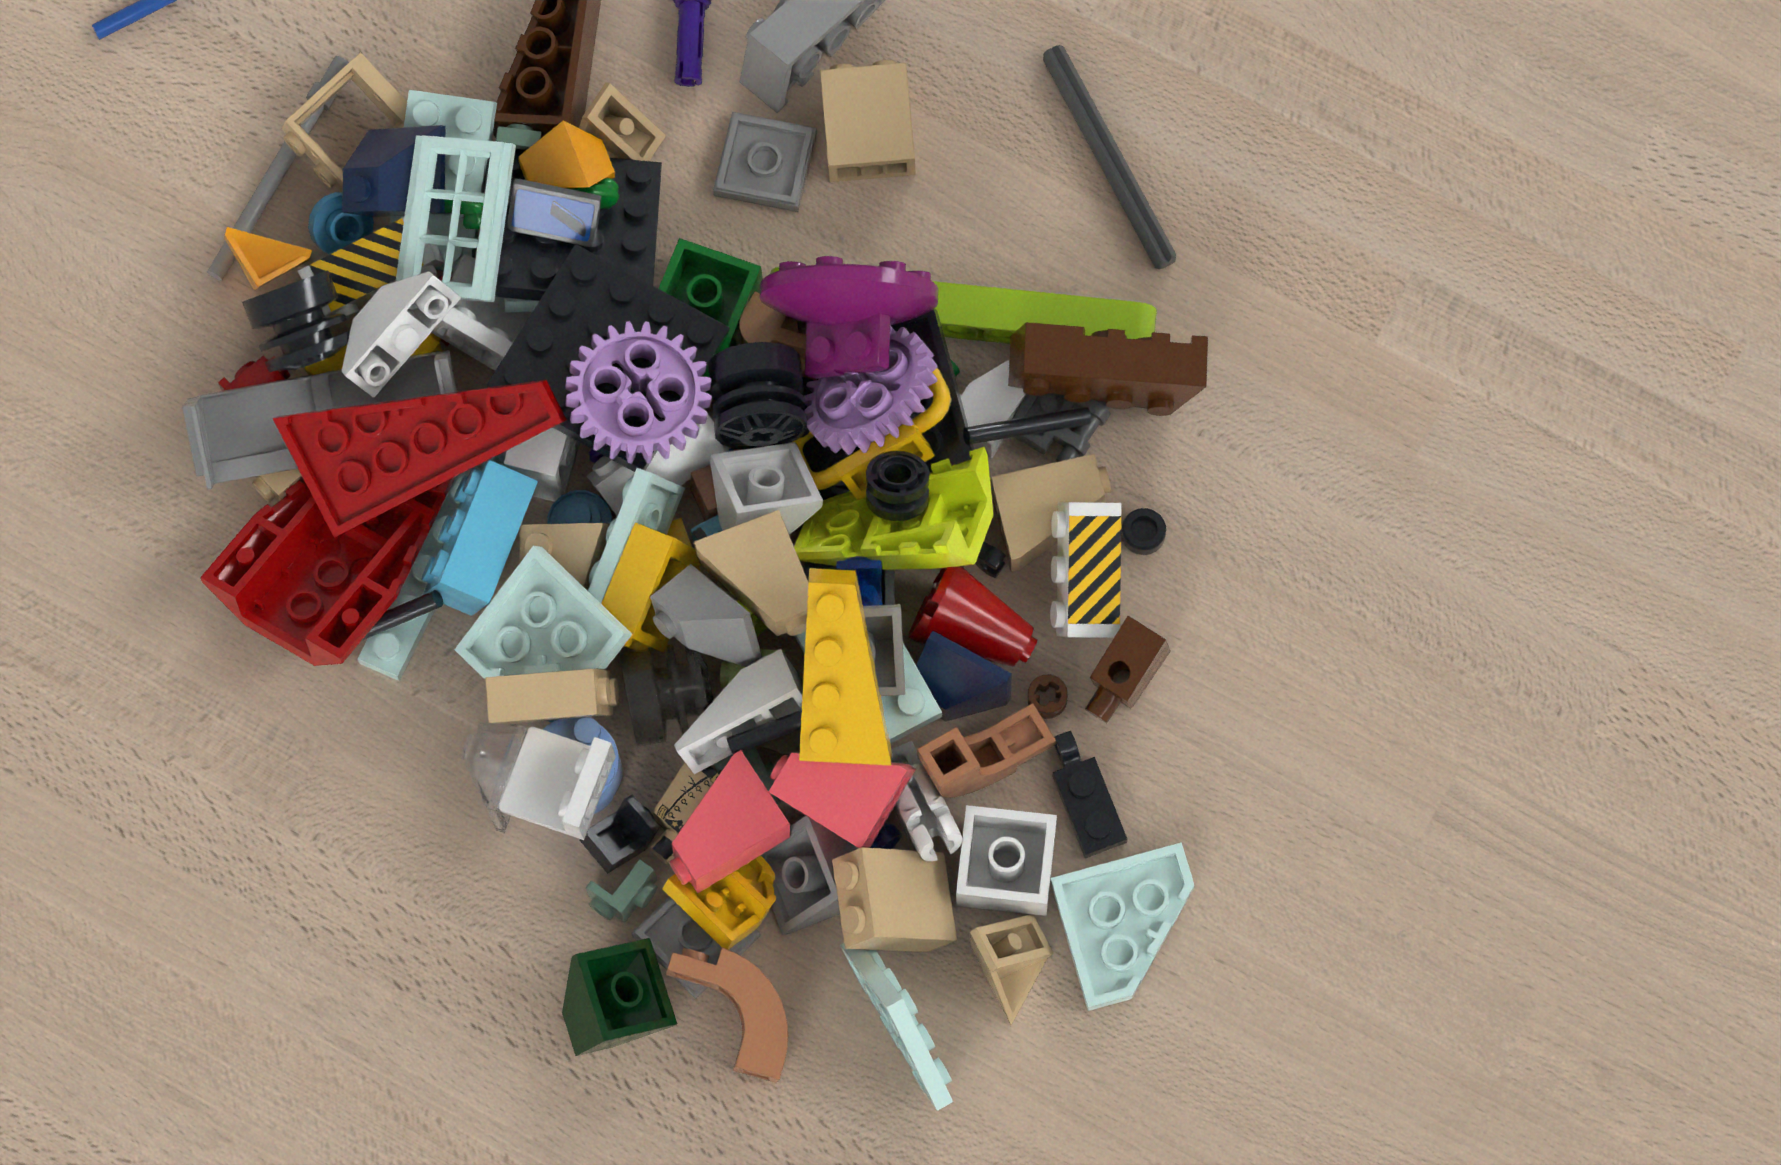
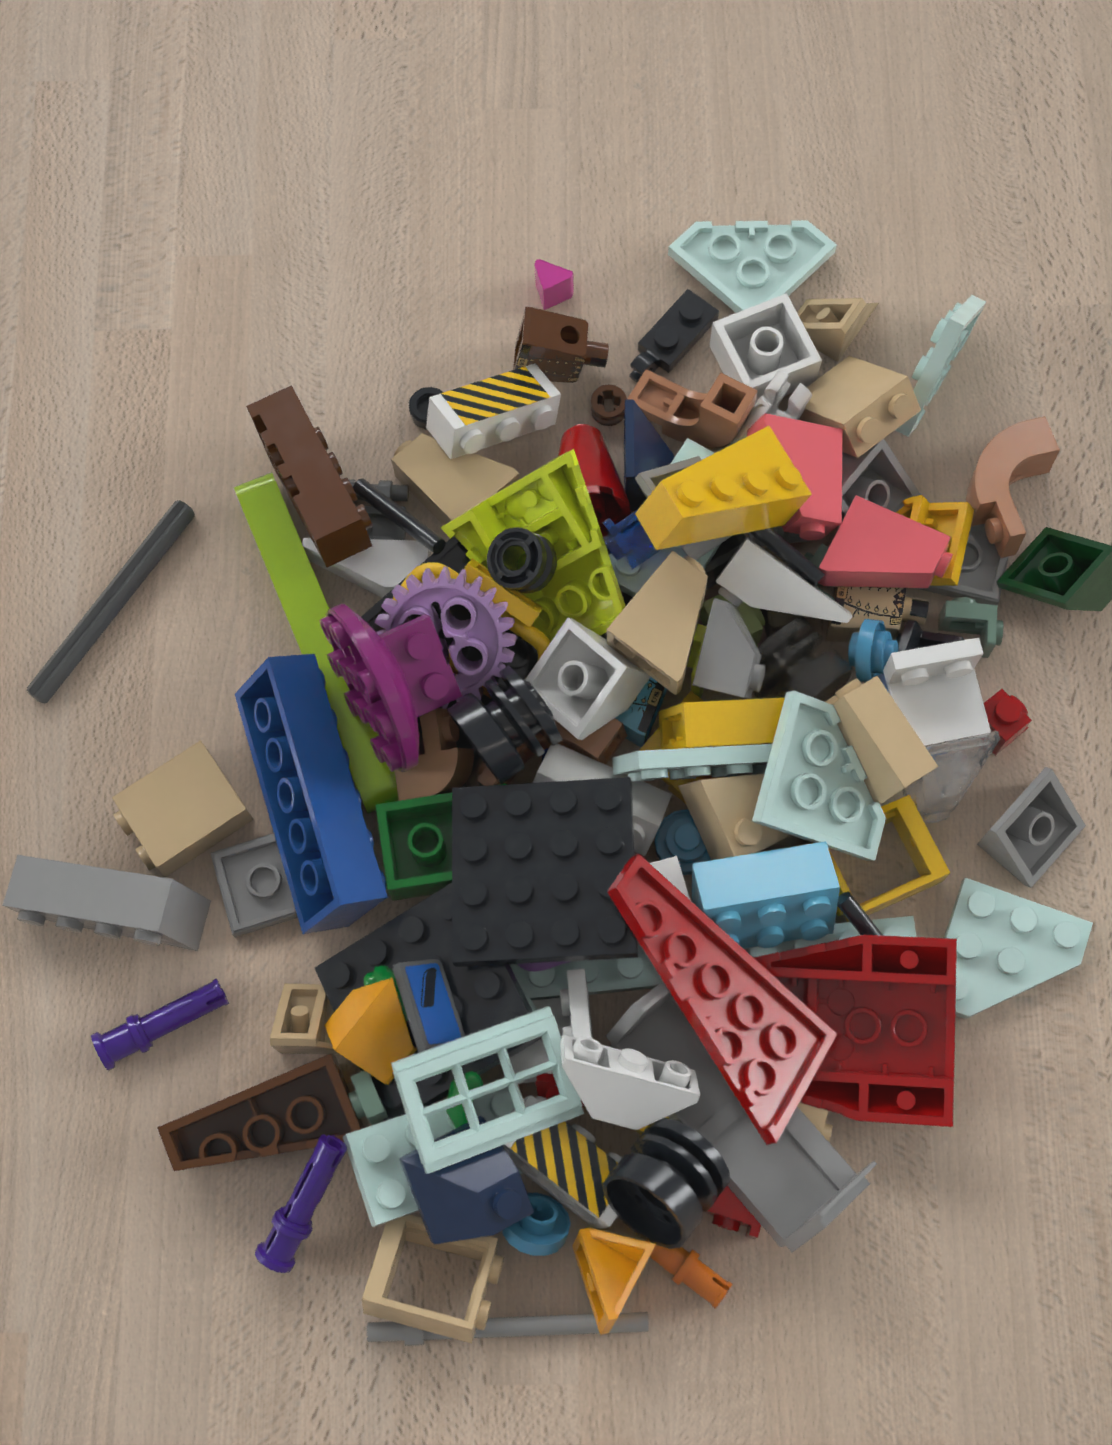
camera: 120 degrees left, 0 degrees up
(222, 330) = (692, 1272): none -> orange pin
(324, 740) = (1008, 945): none -> light aqua plate
(405, 825) = (1034, 829): none -> light grey slope
(441, 714) = (919, 847): none -> yellow window
(459, 41) = (294, 1221): none -> dark purple pin
(518, 857) = (1007, 717): none -> red brick
(606, 413) = (530, 798): lavender gear -> none
(643, 765) = (870, 649): none -> dark azure plate
(803, 220) = (310, 793): none -> blue brick
(1208, 709) = (553, 283): none -> dark pink slope

